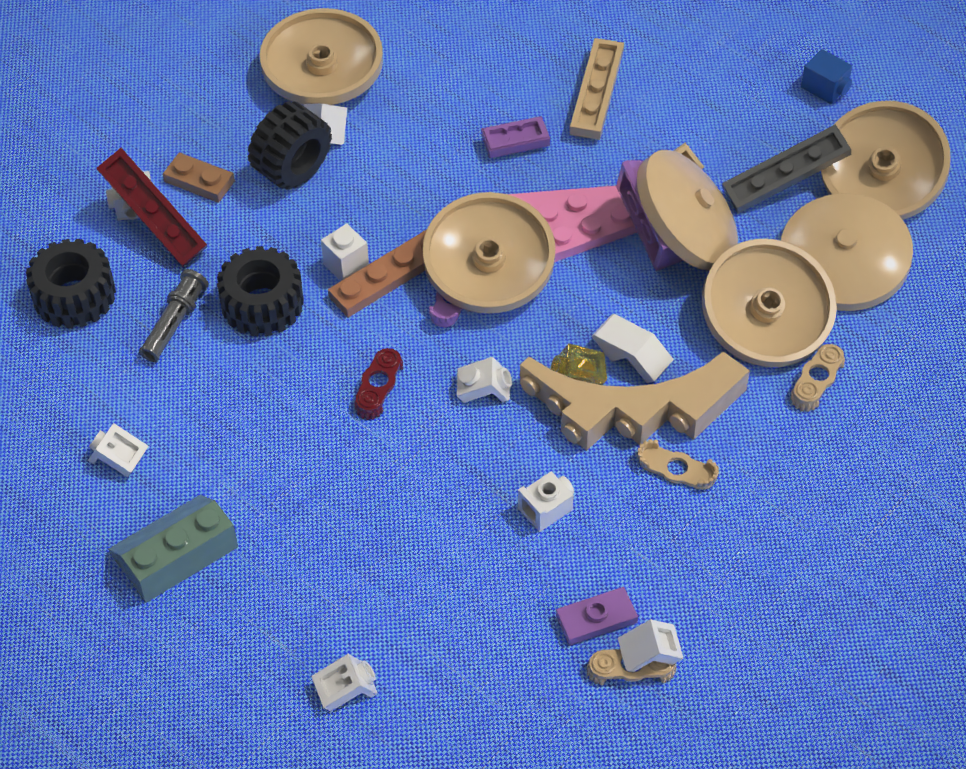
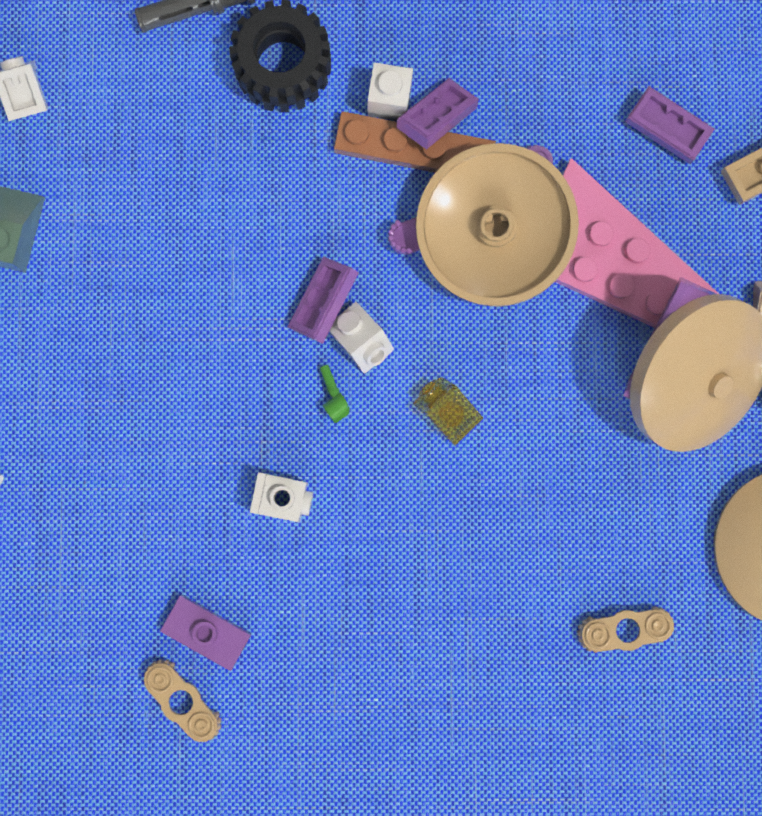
camera: 45 degrees right, 30 degrees up
(370, 398) = (258, 252): dark red piece -> none
(385, 238) = (437, 113): none -> medium lavender plate
(438, 383) = (323, 299): none -> medium lavender plate
(515, 425) = (336, 407): none -> bright green hand
(626, 340) = (510, 439): white slope -> none
(637, 411) = (489, 538): tan arch -> none
(650, 643) = (200, 712): white panel -> none
(656, 460) = (426, 604): tan piece -> none
(769, 302) = (665, 528): tan dish -> none

